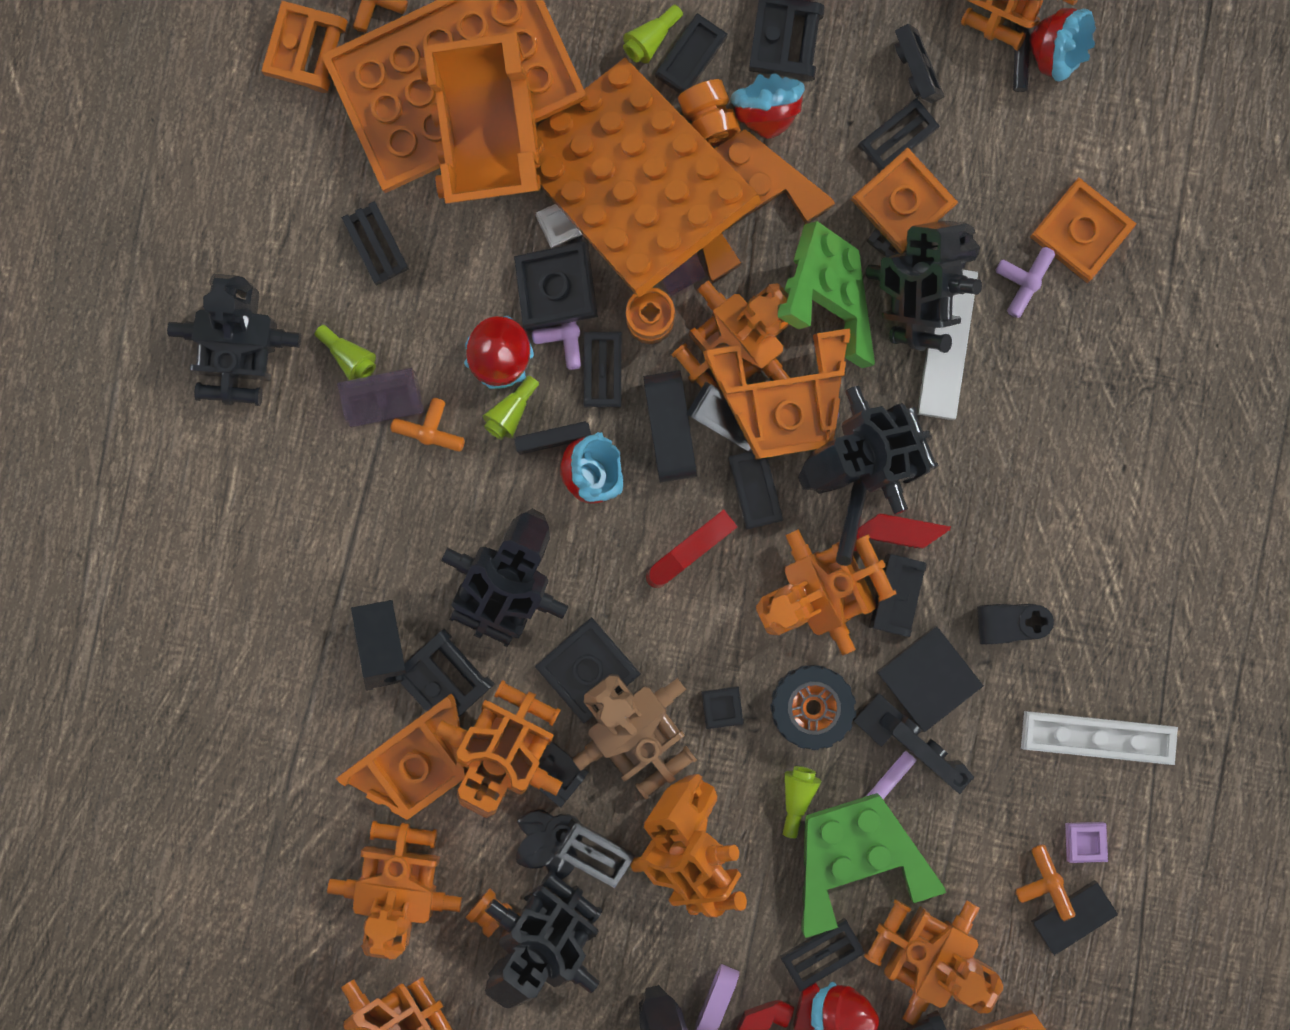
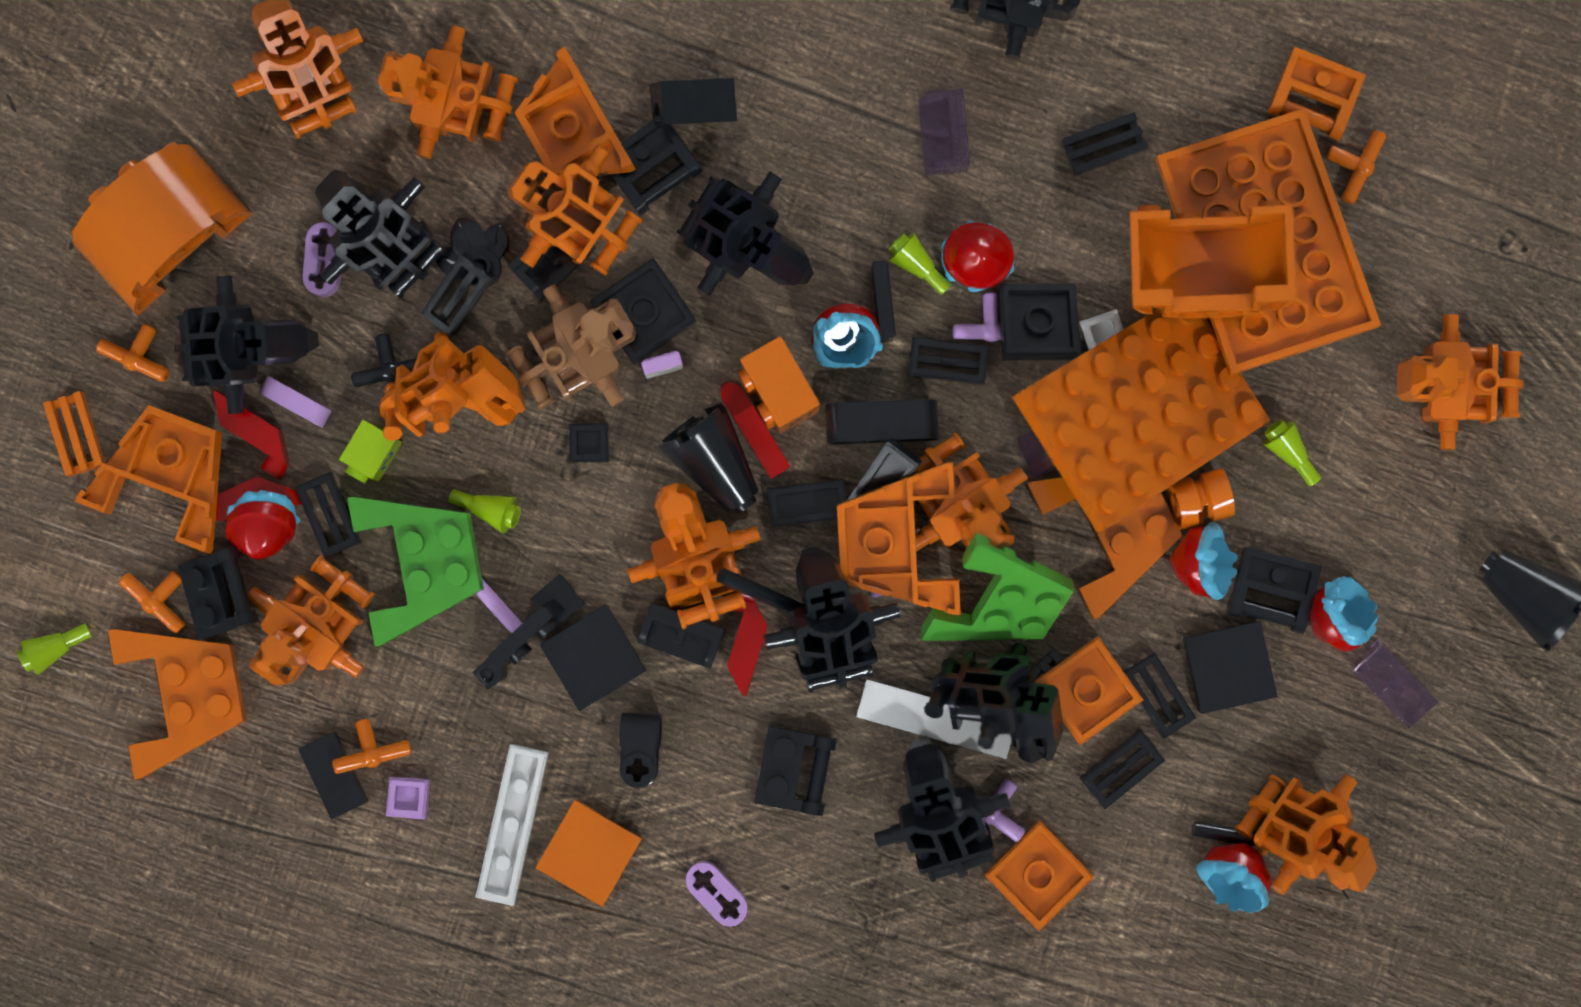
camera: 90 degrees right, 0 degrees up
(352, 359) = (986, 108): lime cone -> none
(428, 432) = (903, 176): orange piece -> none
(478, 914) = (405, 176): orange wheel -> none
(574, 1001) = (313, 260): none -> lavender beam
(638, 645) = (662, 364): none -> lavender tile
(649, 527) = (778, 385): none -> orange brick
(650, 316) = (996, 414): orange wheel -> none
(672, 914) = (387, 370): none -> black piece
(691, 54) = (1266, 490): black tile -> none
(724, 585) = (713, 458): none -> black cone
(759, 922) = (369, 453): none -> lime brick
(835, 707) = (557, 526): black wheel -> none
(864, 71) = (1230, 667): none -> black tile
(912, 51) = (1241, 721): black plate -> none
(962, 172) = (1096, 789): none -> black tile
(1013, 484) = (782, 767): none -> black plate
(1050, 323) = (942, 821): none -> black piece
(1117, 660) = (588, 852): none -> orange tile
(1146, 539) = (709, 900): none -> lavender beam

